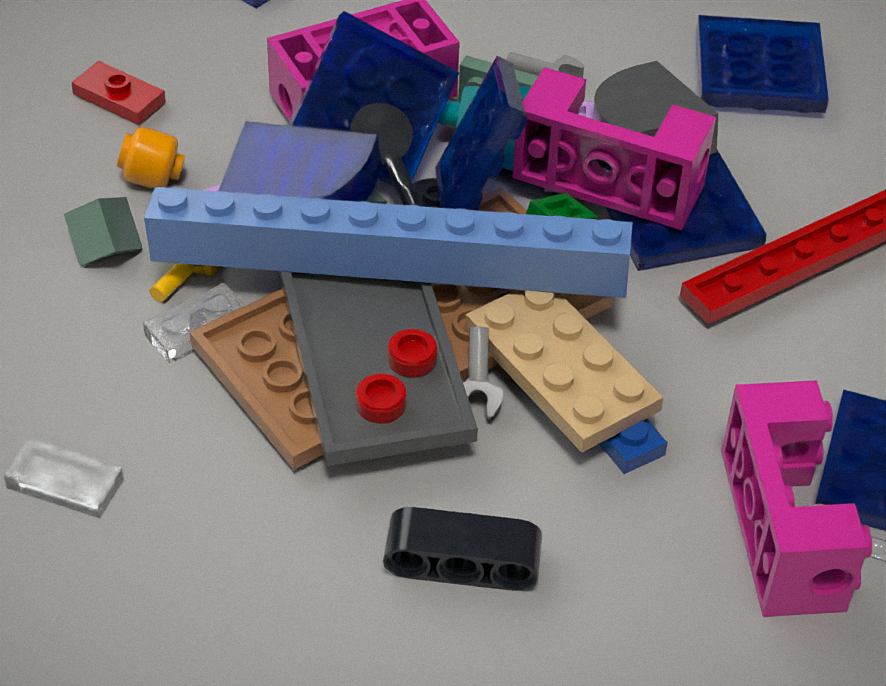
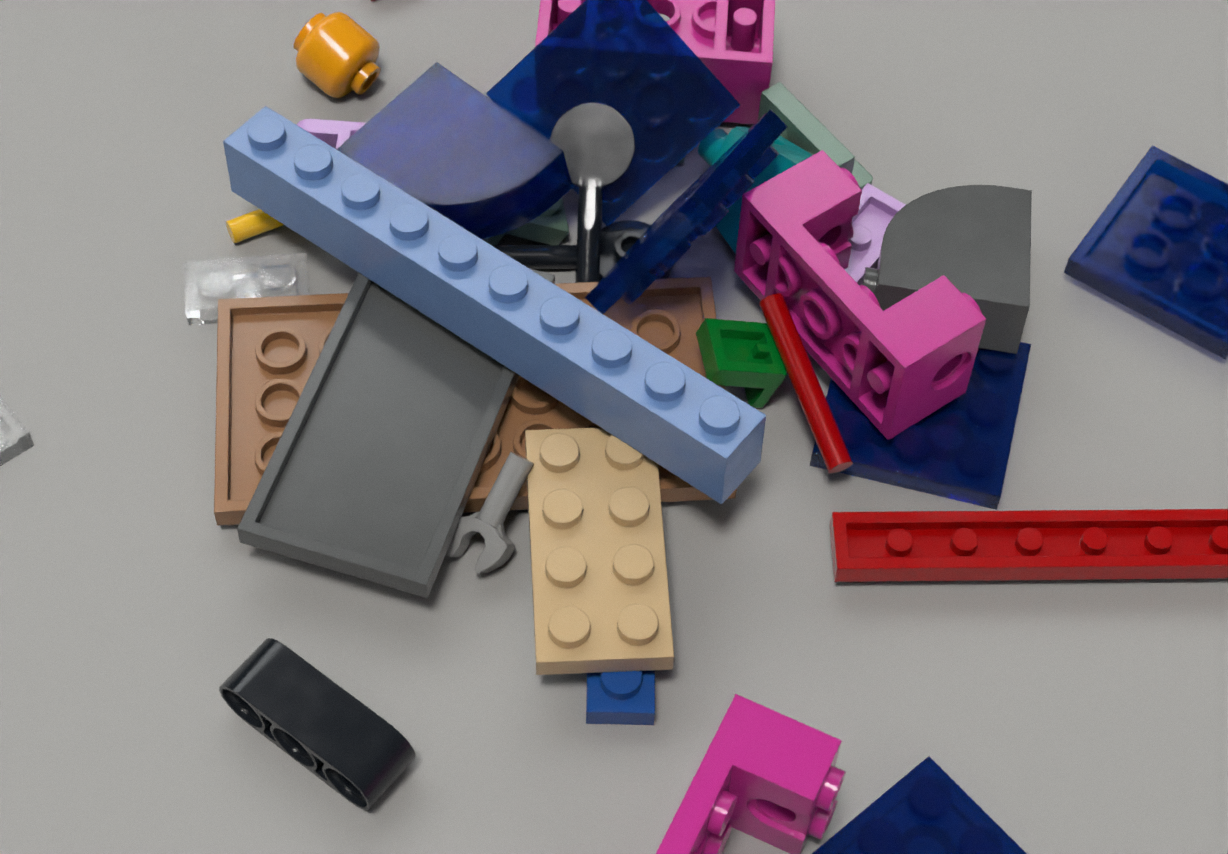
camera: 30 degrees right, 10 degrees up
(102, 229) = (212, 116): sand green panel -> none
(380, 398) = (348, 491): red tile -> none
(412, 353) = (426, 450): red tile -> none
(535, 66) = (908, 143): light grey bar -> none
(606, 210) = (805, 383): none -> red bar

